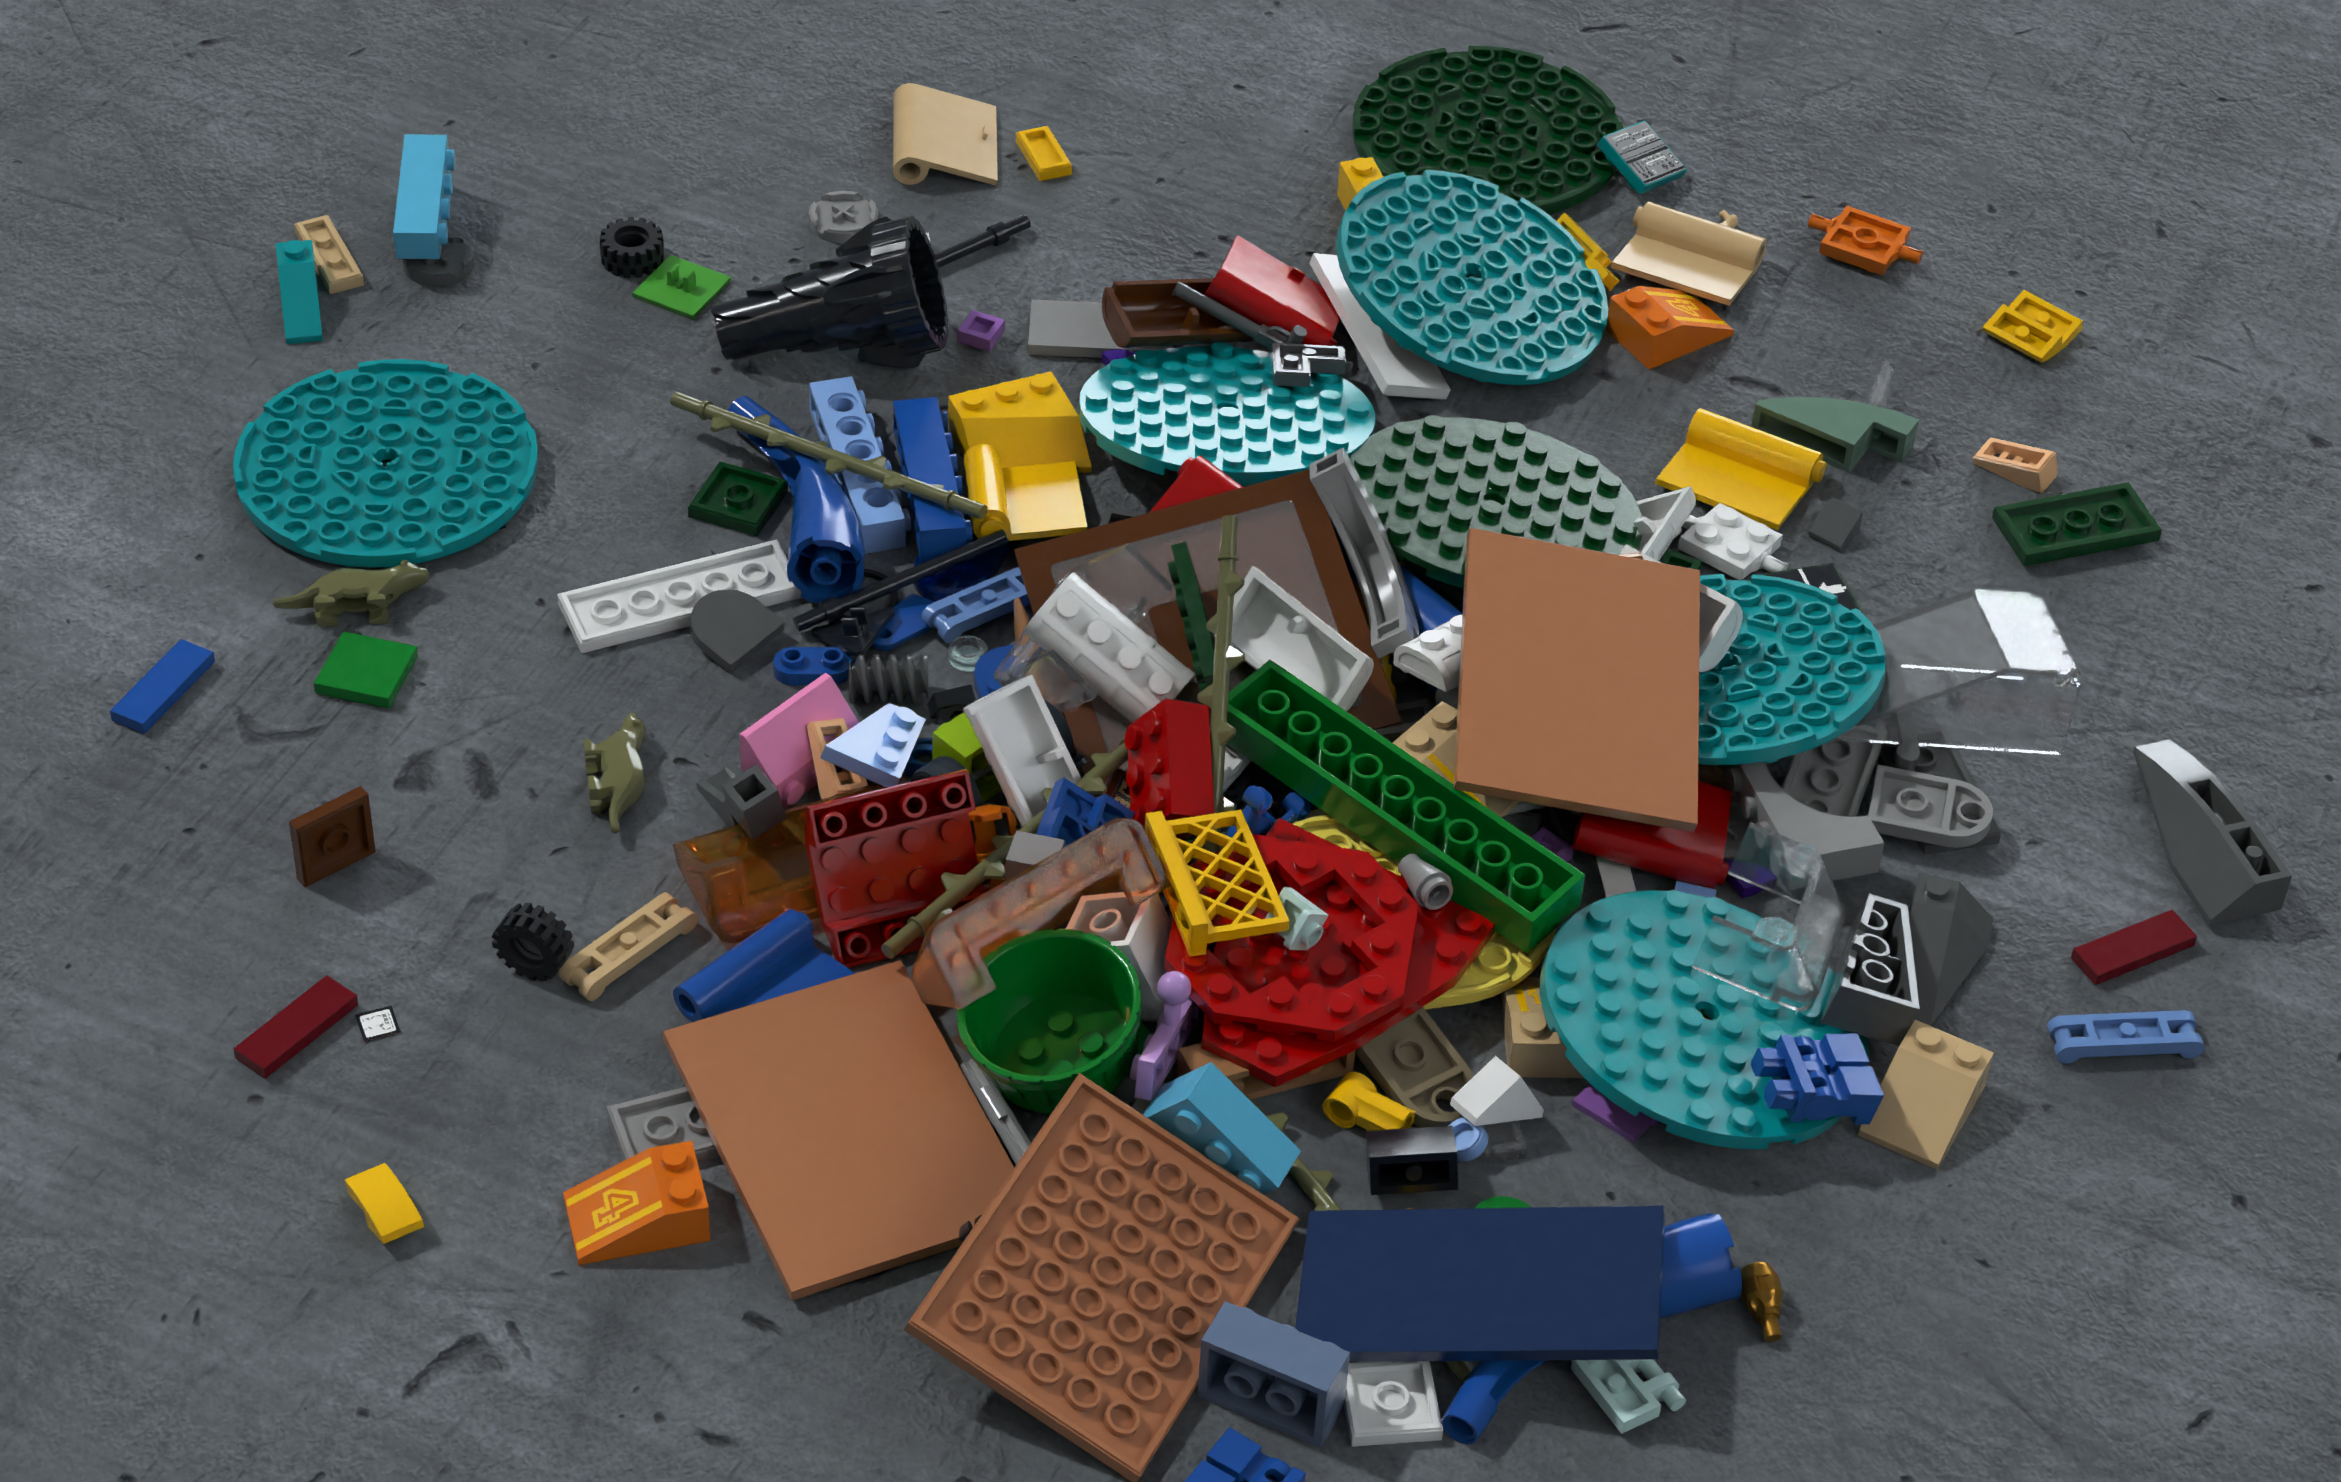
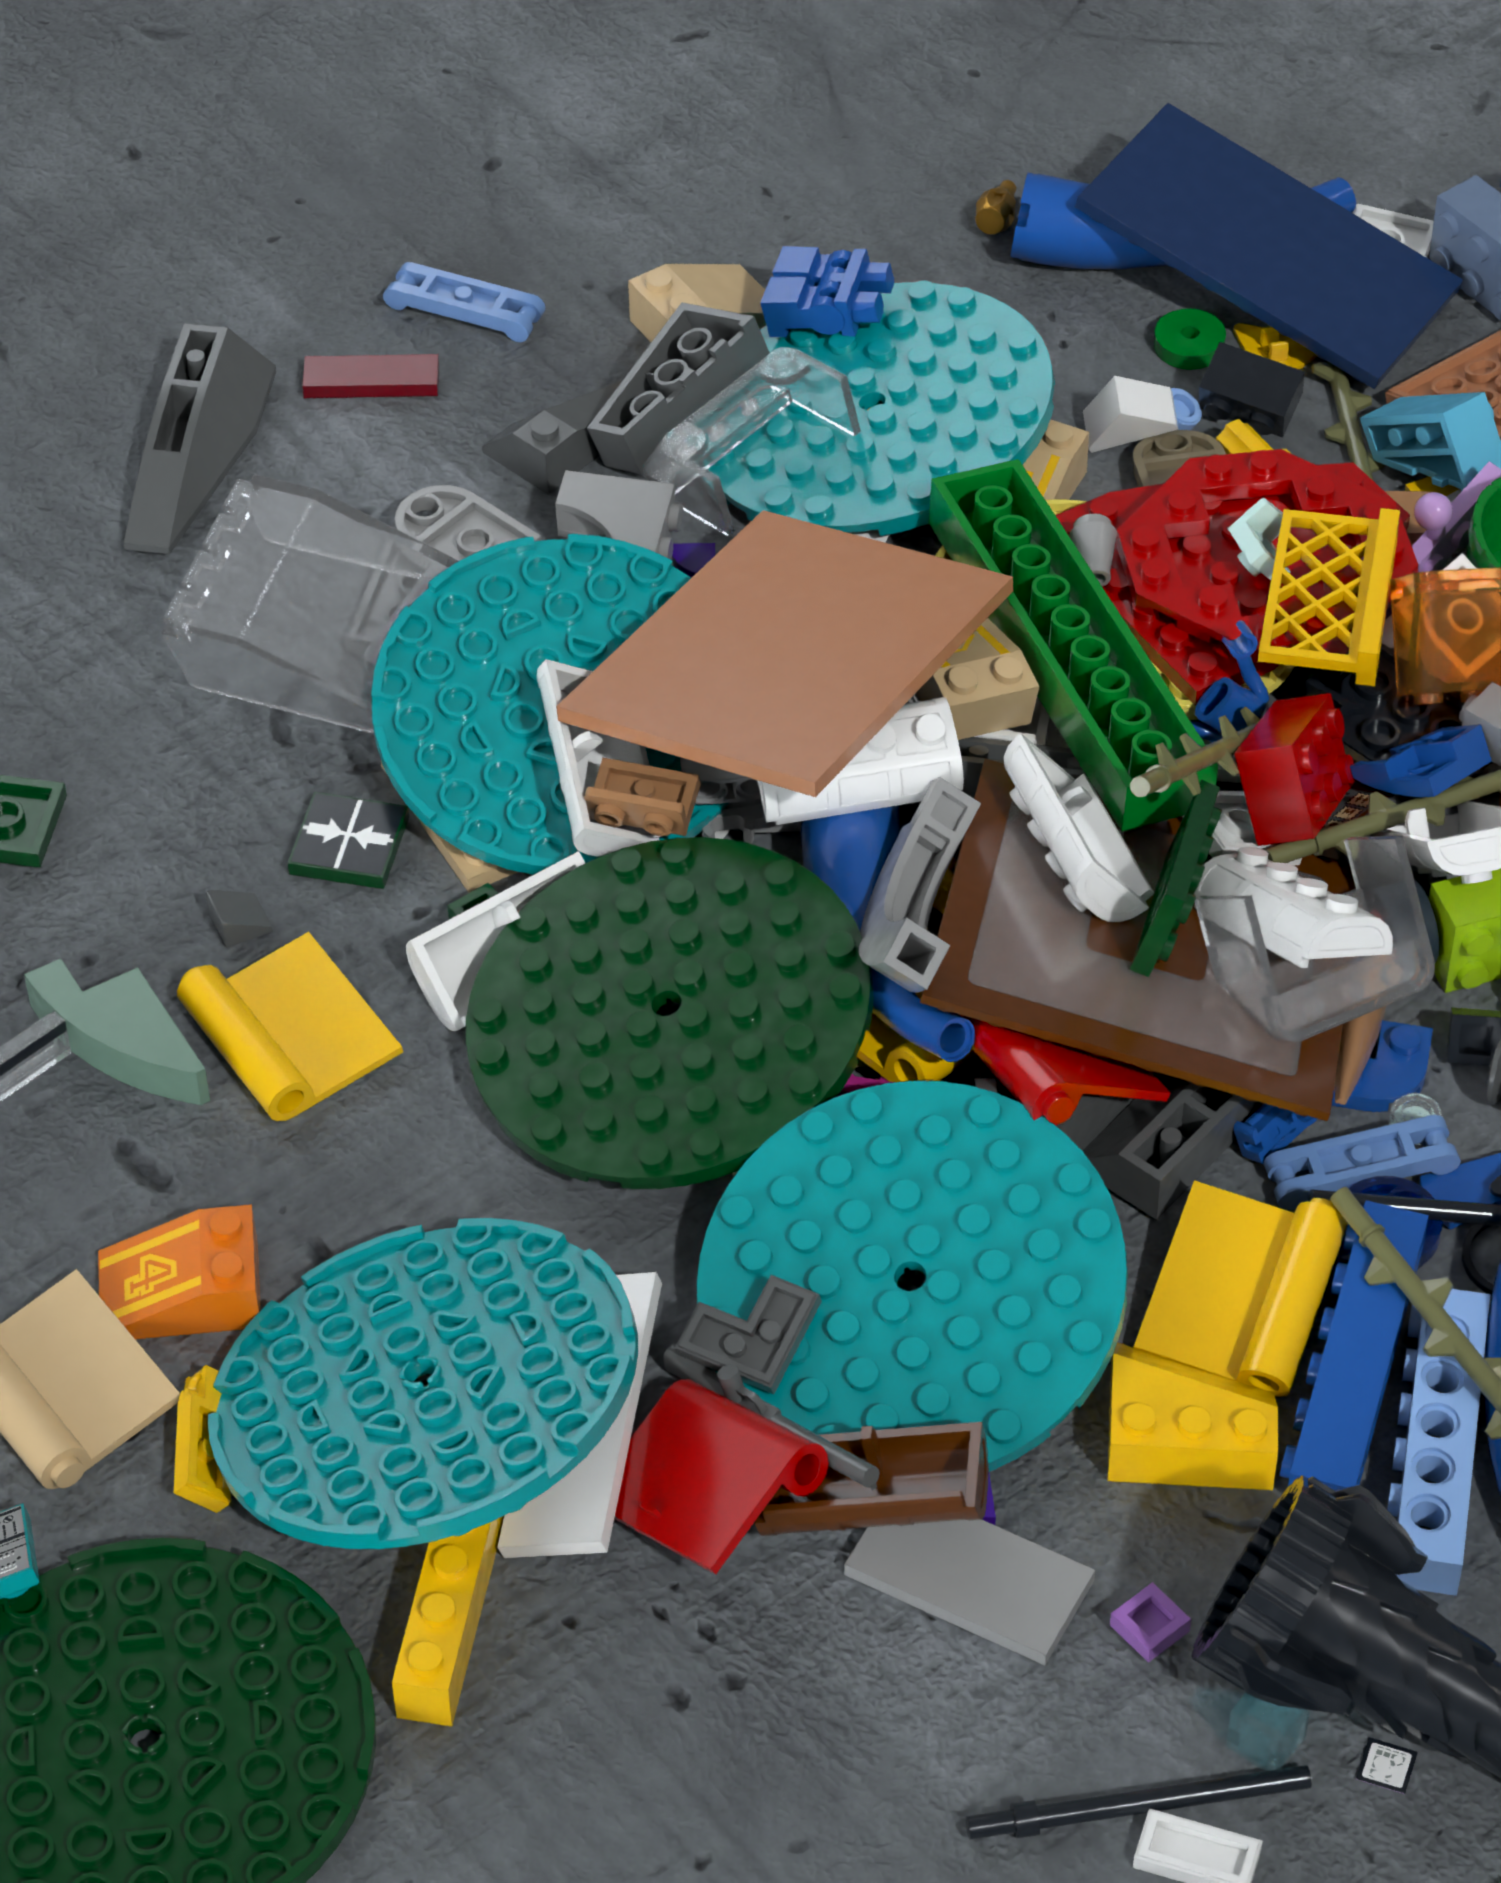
camera: 150 degrees left, 5 degrees up
(1731, 542) = (372, 936): white plate -> none

